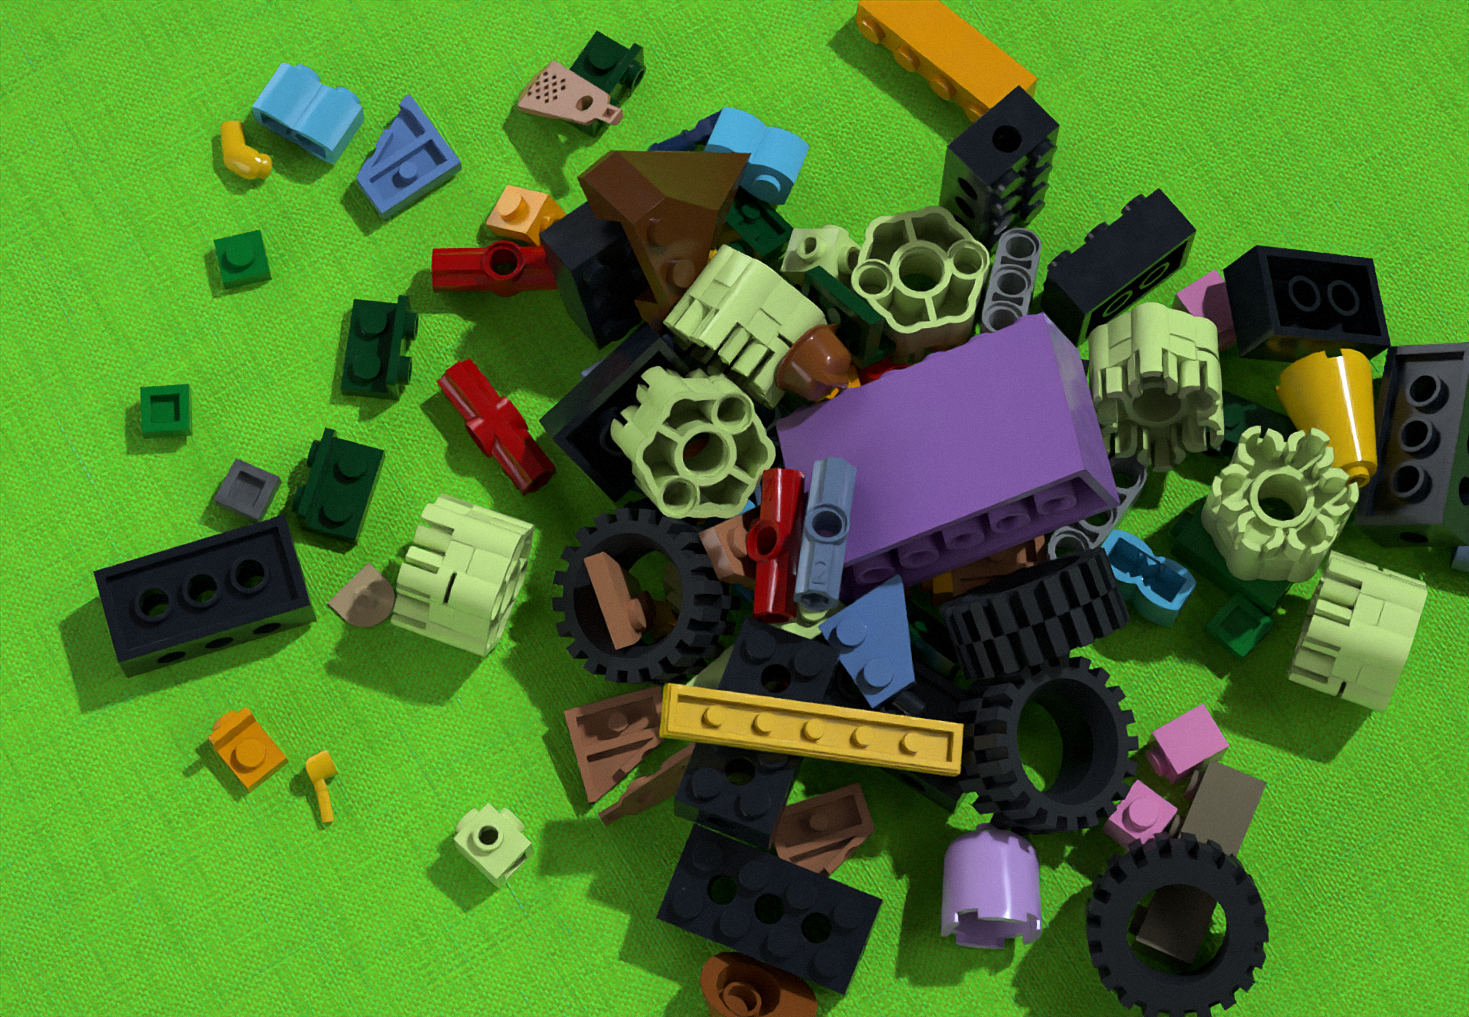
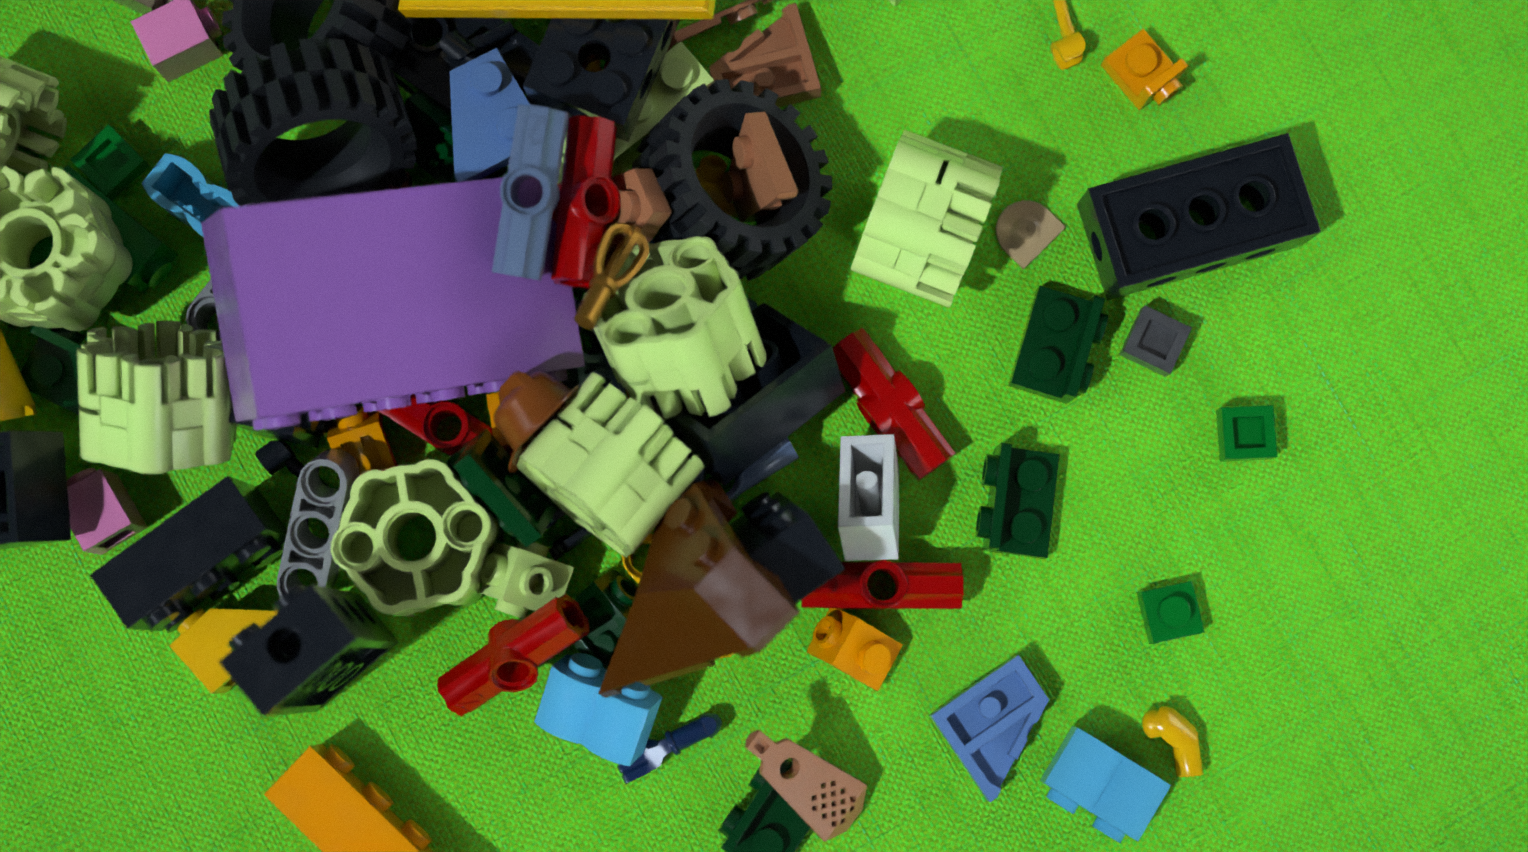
camera: 175 degrees right, 10 degrees up
(516, 332) = (869, 498): none -> white brick
(755, 457) = (603, 284): none -> pearl gold piece
(829, 193) = (513, 655): none -> red piece
(1078, 205) = (206, 639): none -> yellow slope

